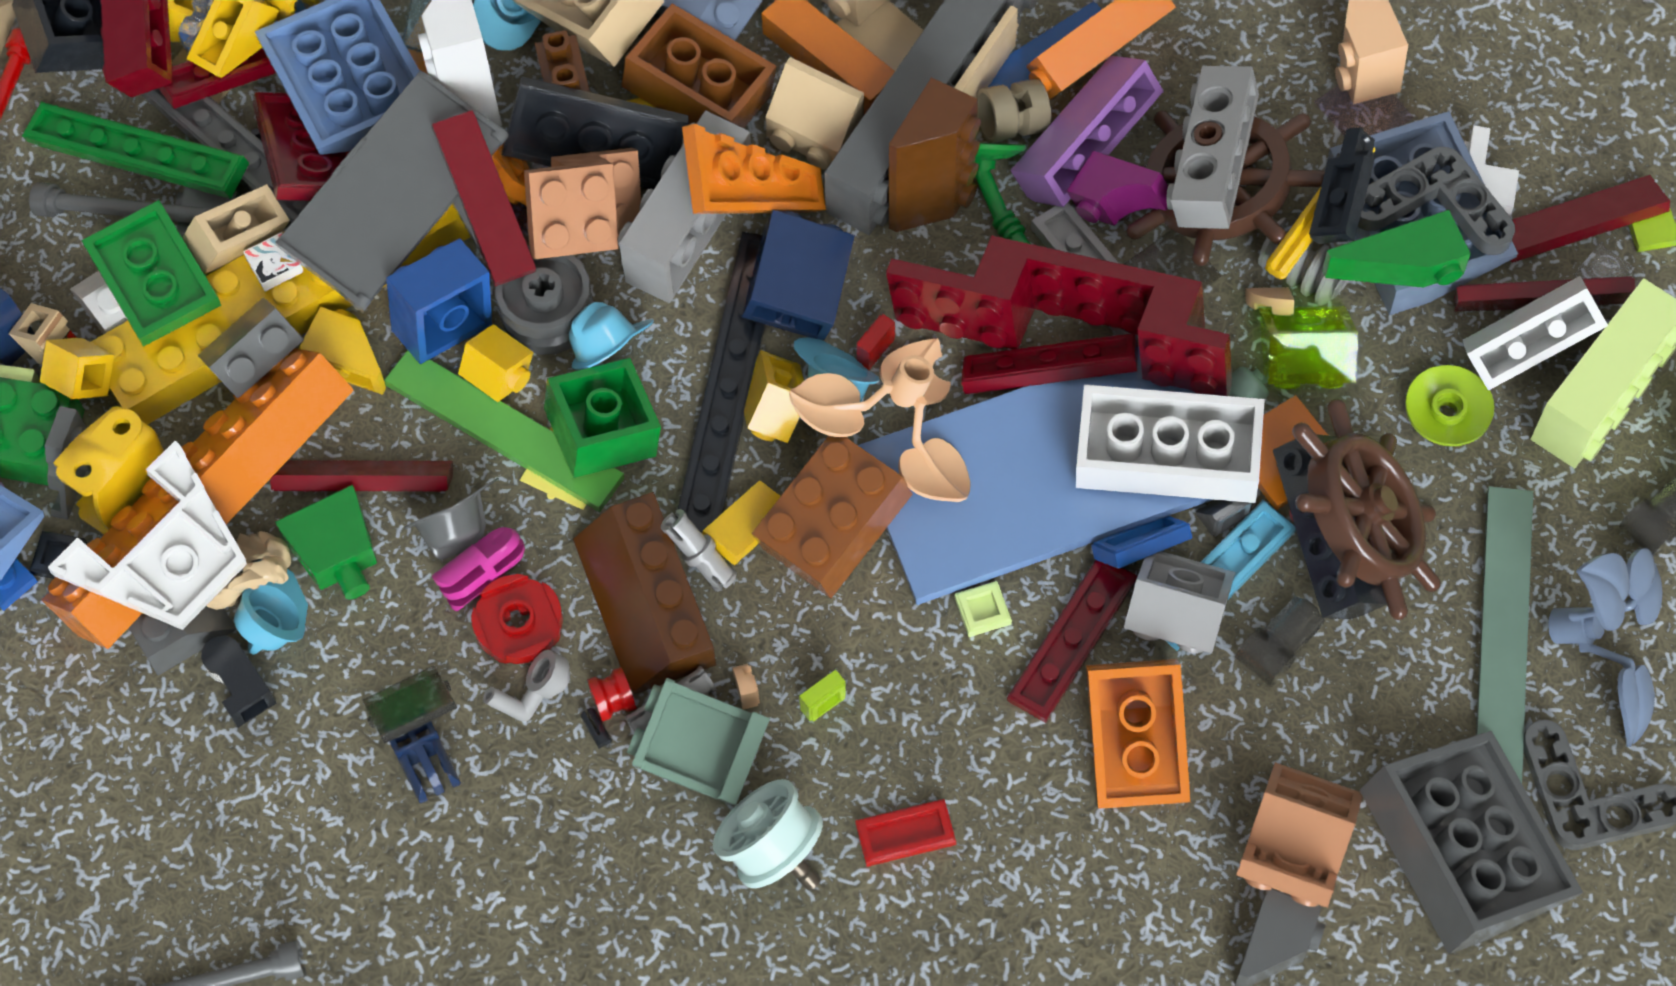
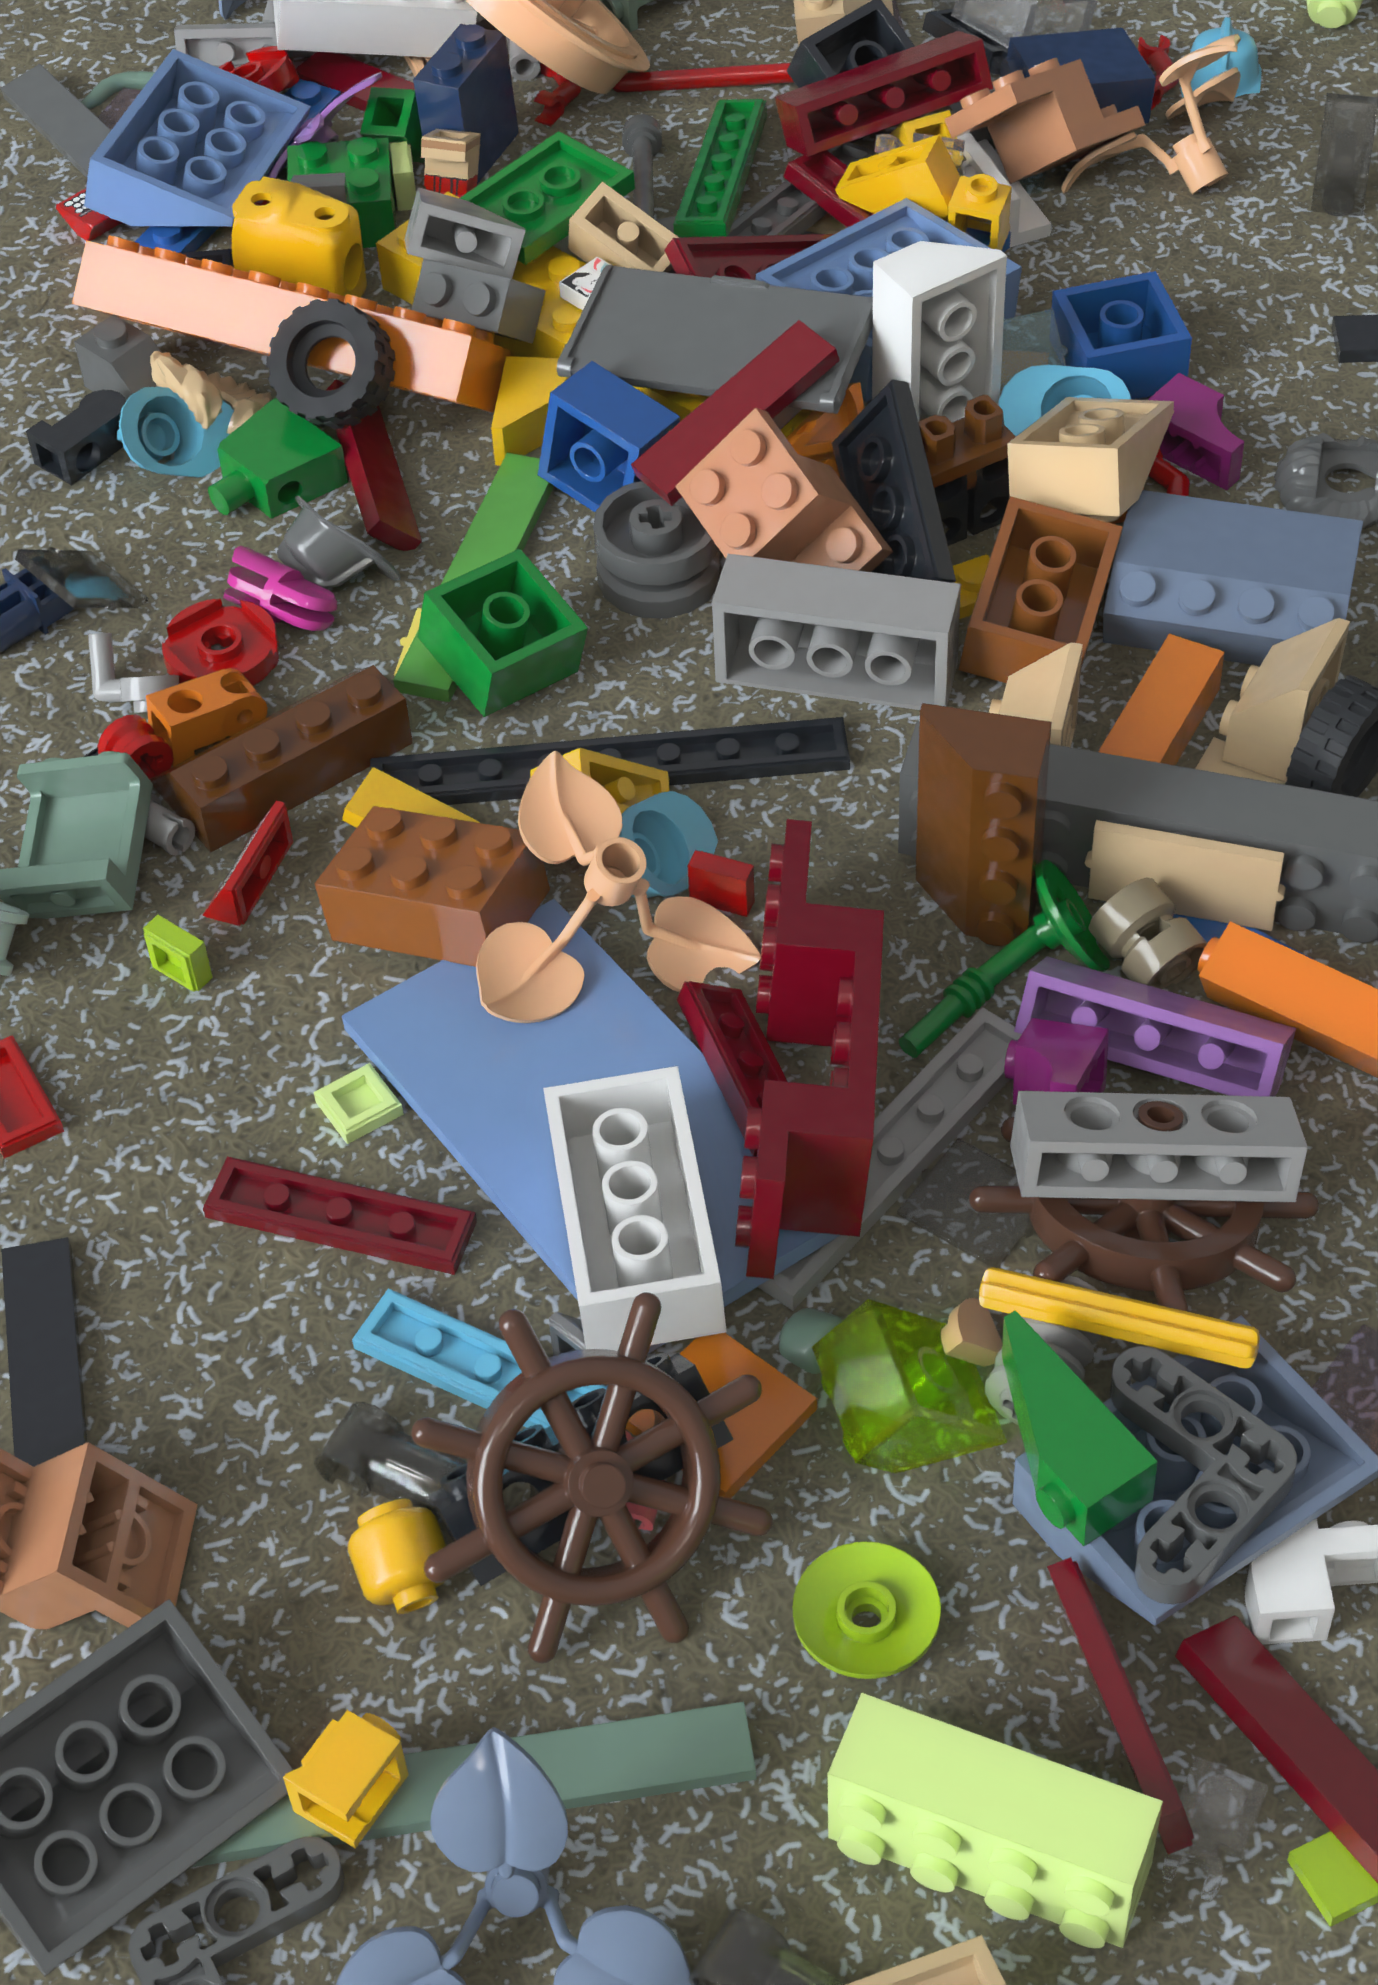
camera: 75 degrees right, 15 degrees down
(76, 368) = (397, 184): yellow brick -> none
(175, 564) = (175, 301): white wing -> none
(185, 337) = (462, 234): none -> light grey slope
(325, 469) = (292, 349): none -> black tyre
(496, 363) = (556, 529): yellow brick -> none
(589, 639) = (204, 711): none -> orange leg
(600, 333) = (620, 589): medium azure piece -> none
(698, 550) = (342, 768): light grey pin -> none
(746, 178) = (870, 636): orange wing -> none
(746, 686) = (178, 876): light nougat tile -> none
(749, 637) = (253, 868): none -> red slope
(798, 275) = (789, 766): dark blue brick -> none
(1138, 733) = (205, 1311): orange slope -> none
(1138, 838) = (43, 1350): none -> black tile
(1141, 541) = (497, 1245): blue tile -> none
(1179, 602) = (409, 1303): light grey slope -> none
(1344, 189) = (1147, 1312): black hinge -> none
(1351, 647) = (391, 1554): none -> yellow head
(1503, 697) = (348, 1776): none -> yellow window
(1534, 333) = (1019, 1679): white brick -> none

